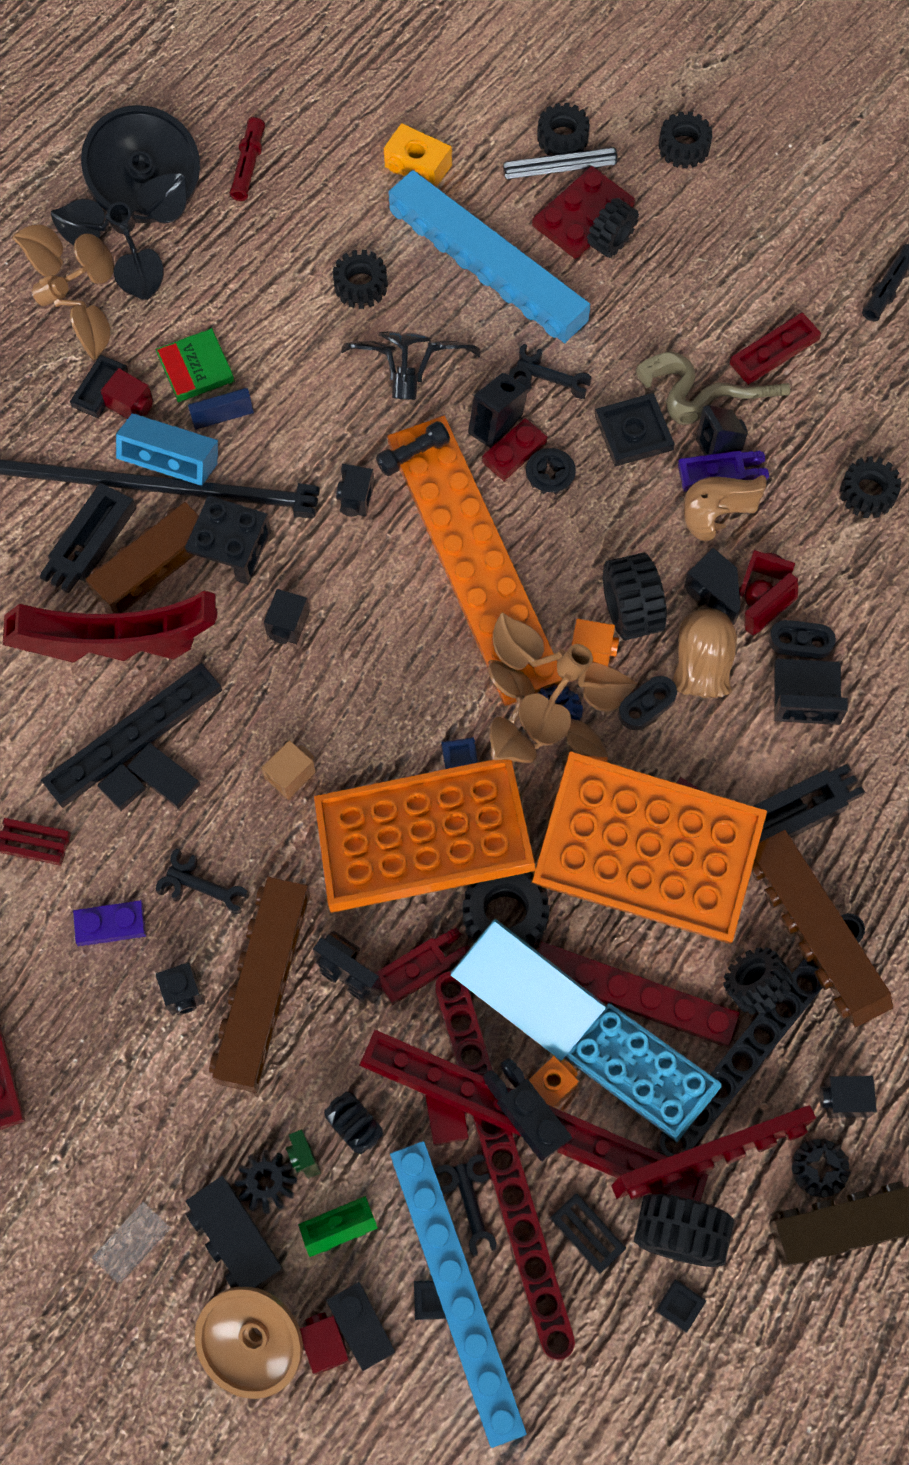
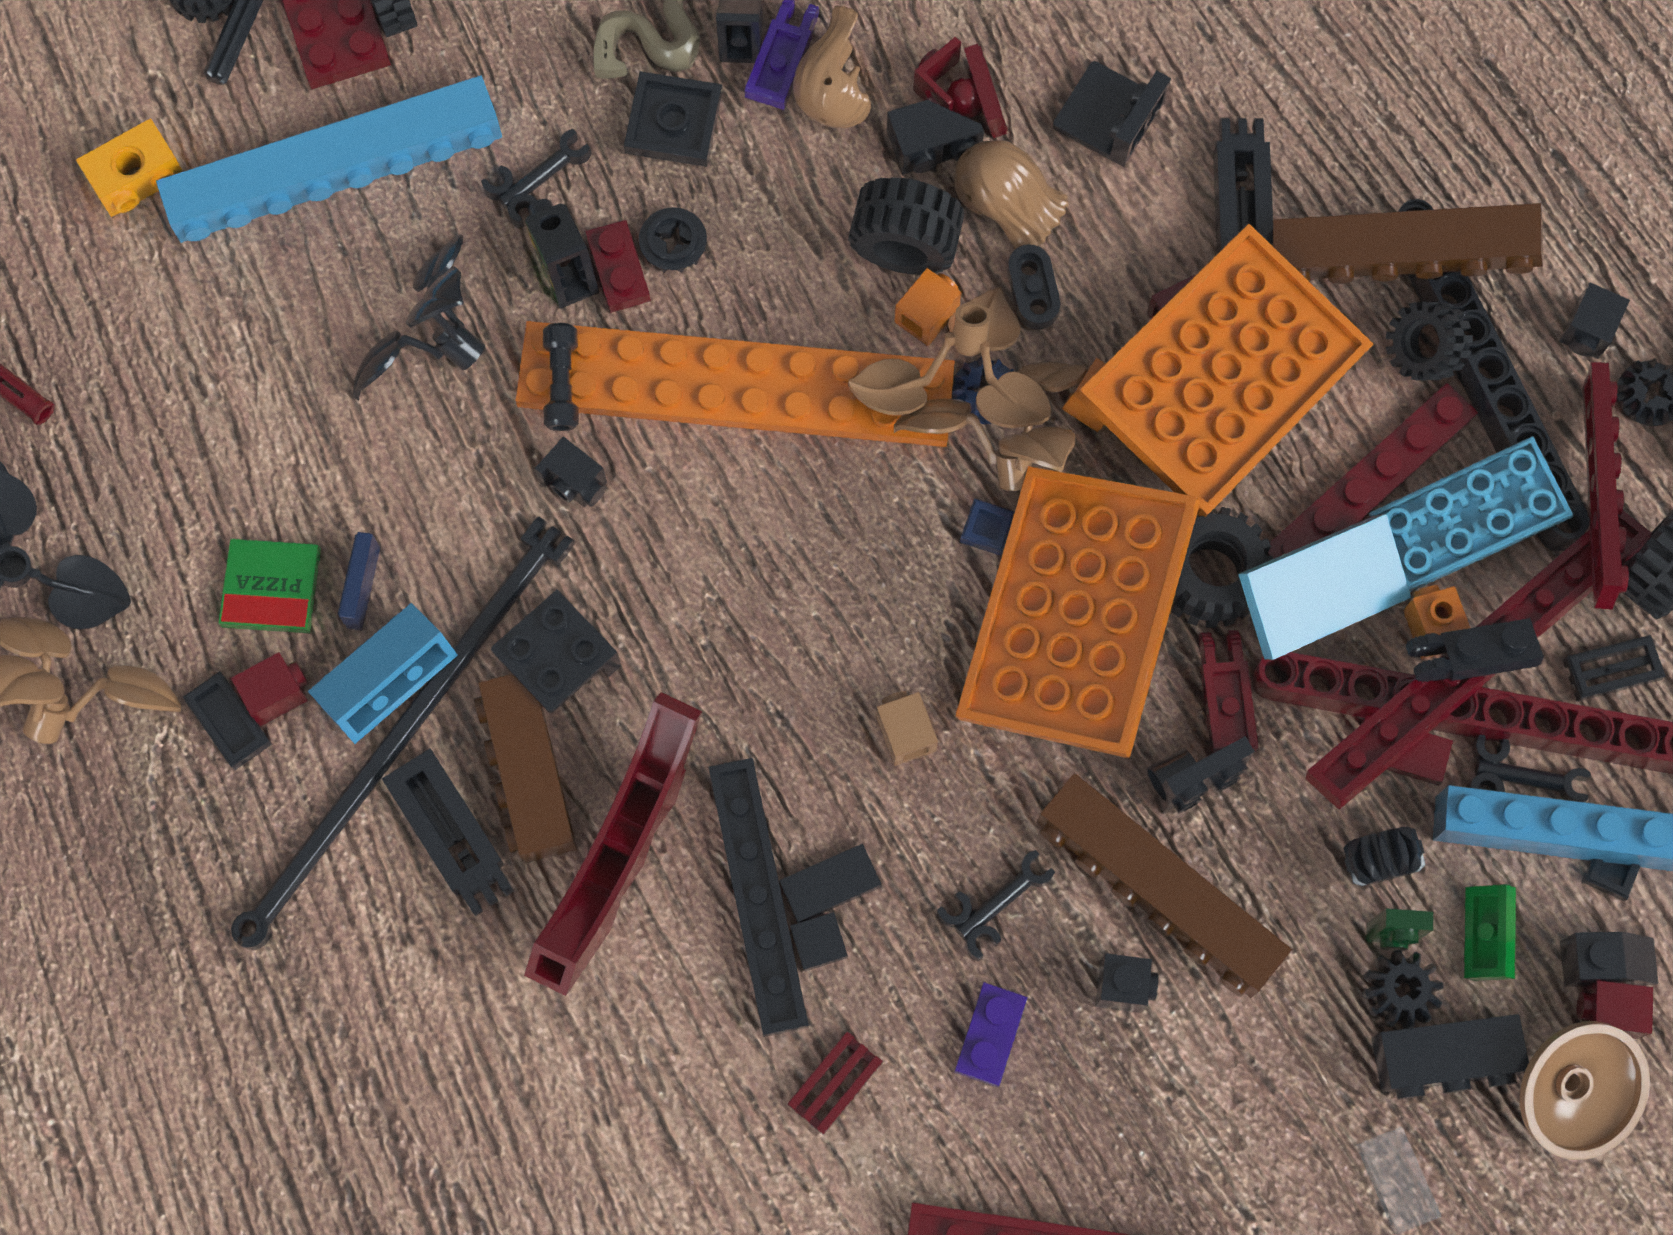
camera: 65 degrees left, 5 degrees up
(286, 617) = (701, 637): black brick -> none
(360, 265) = (260, 303): black tyre -> none
(801, 637) = (1041, 86): black plate -> none

